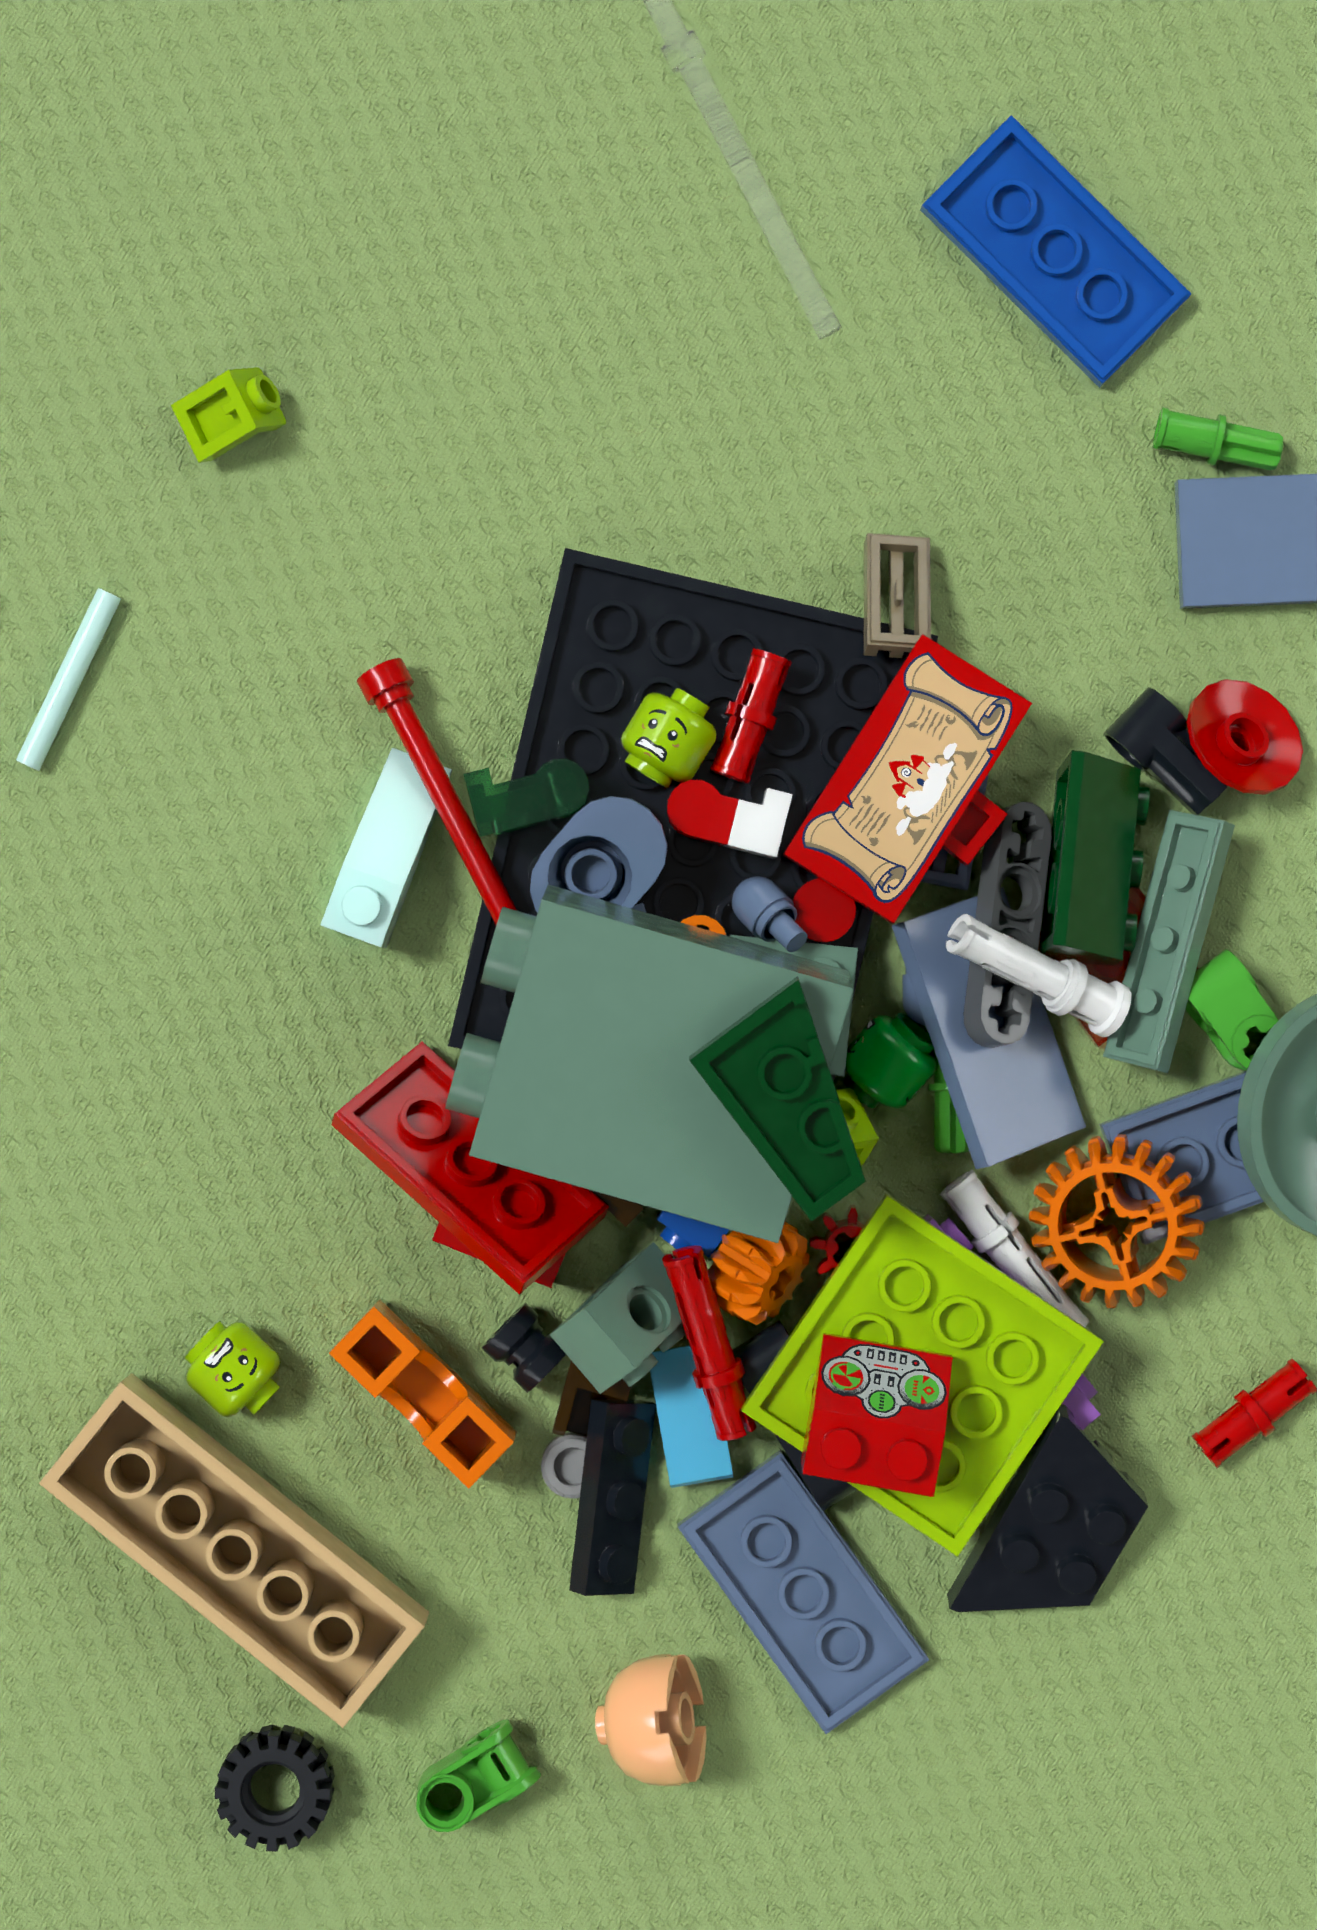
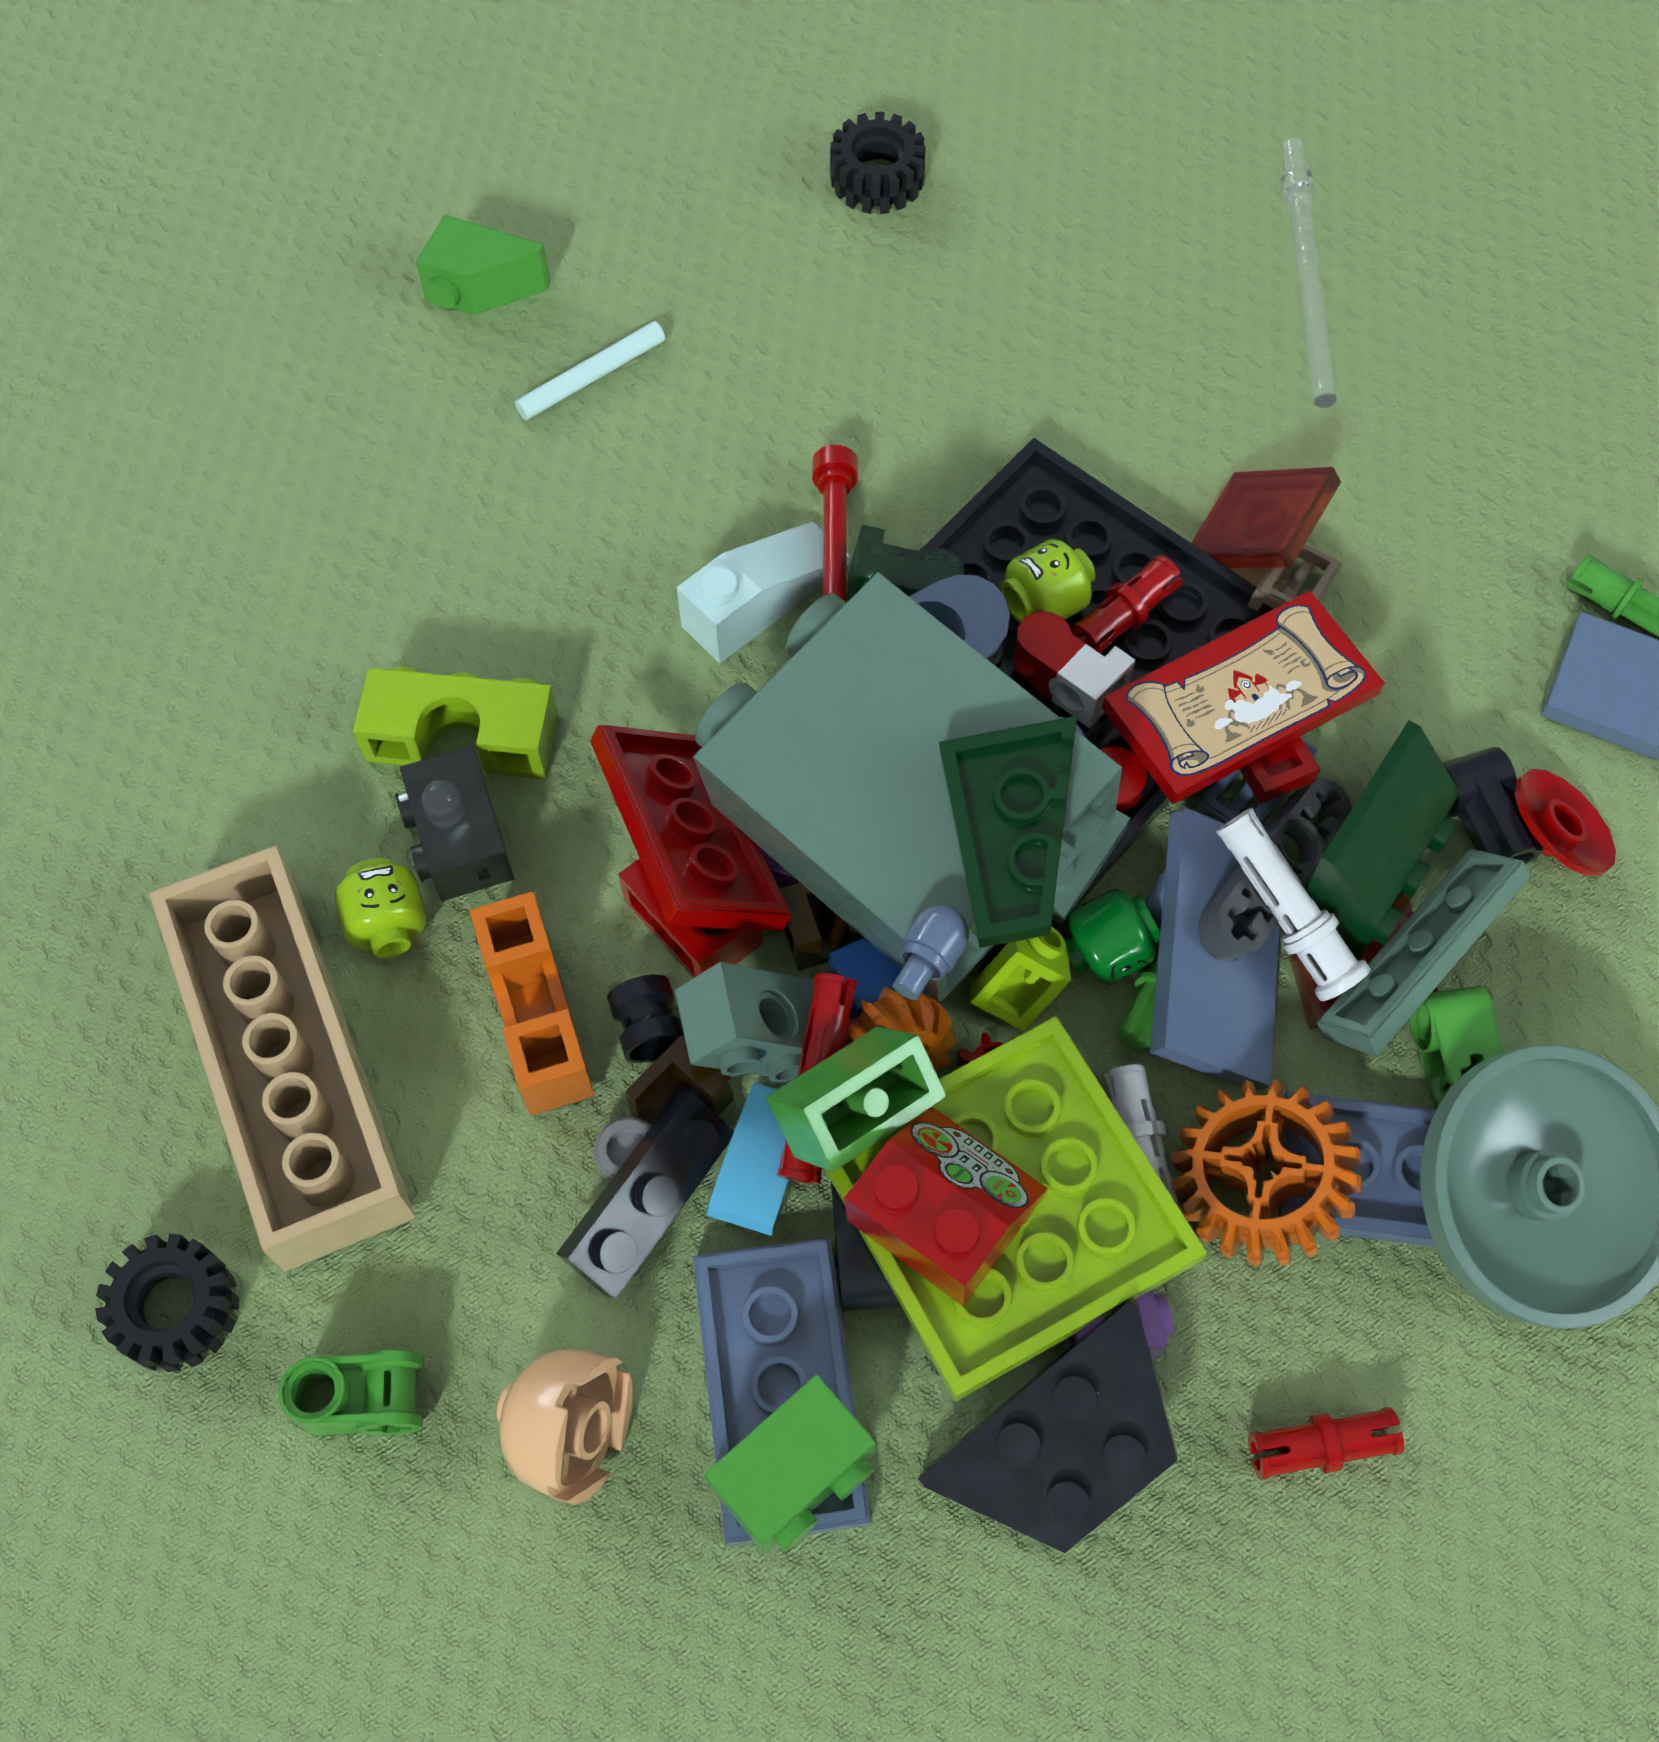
camera: 30 degrees right, 25 degrees down
(131, 1167) = (409, 710): none -> lime arch
(213, 216) = (877, 141): none -> black tyre
(229, 412) = (823, 249): lime bracket -> none
(246, 1254) = (455, 824): none -> pearl dark grey piece
(762, 1369) = (856, 1097): none -> bright green brick
(771, 1238) = (931, 949): none -> sand blue cylinder
(835, 537) = (1266, 516): none -> clear red tile
(853, 1662) = (792, 1467): none -> bright green brick
(1055, 251) = (1540, 425): blue tile -> none

